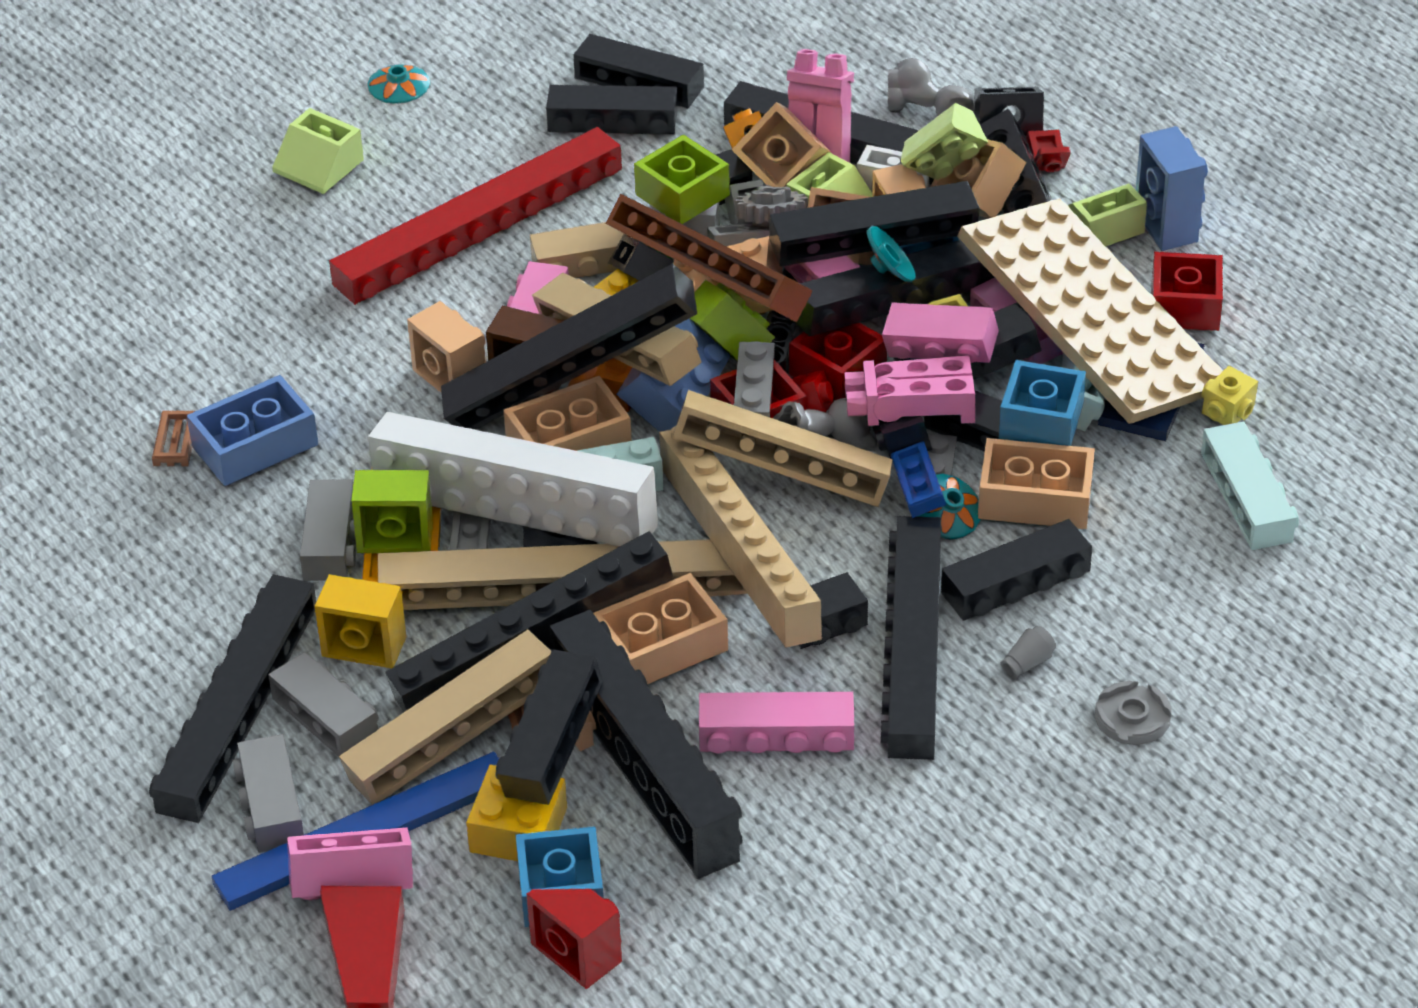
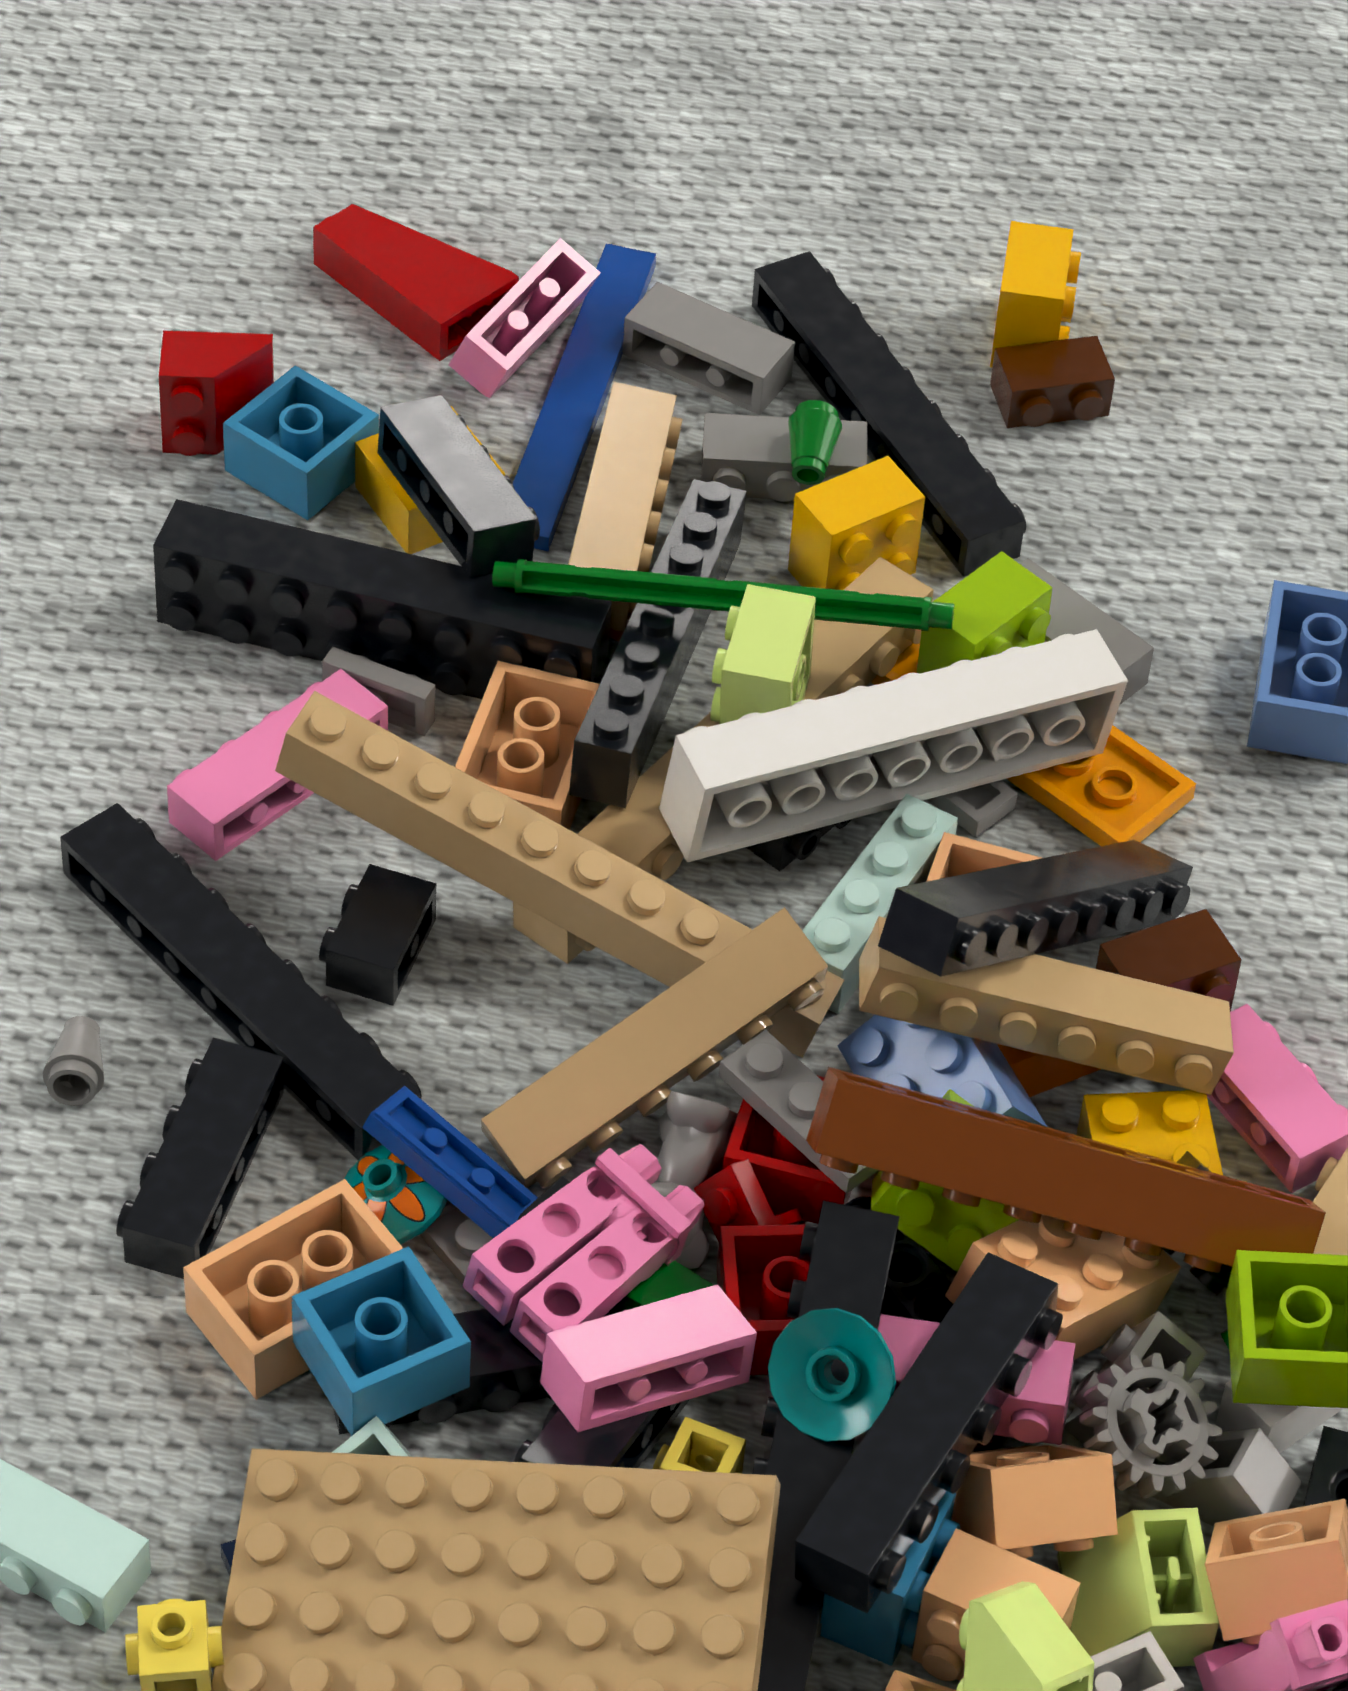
camera: 130 degrees right, 5 degrees up
(86, 679) = (1034, 286): none -> yellow brick
(134, 651) = (1052, 382): none -> reddish brown brick
(321, 664) = (812, 437): none -> green cone
(443, 344) = (1264, 908): light nougat brick -> none
(509, 570) = (715, 594): none -> green piece
(531, 533) = (766, 654): none -> yellowish green brick
(678, 709) = (407, 696): none -> light grey plate

